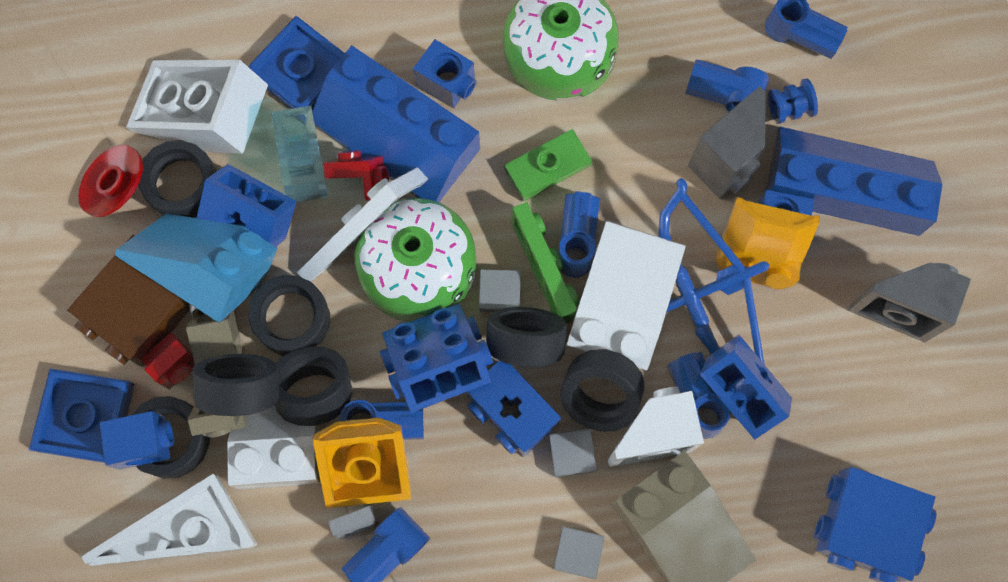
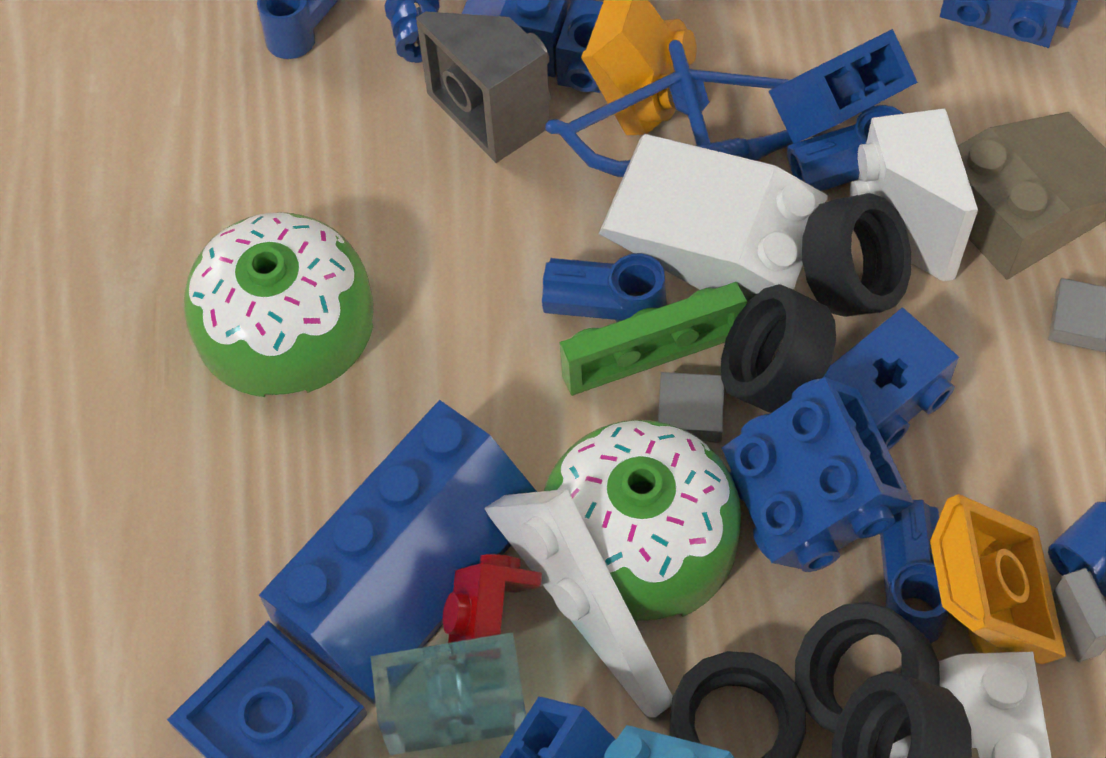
camera: 85 degrees left, 15 degrees down
(442, 59) = (322, 493): blue brick -> none
(548, 165) = (485, 335): bright green plate -> none
(572, 453) = (945, 313): light grey tile -> none
(724, 84) = (387, 87): blue piece -> none

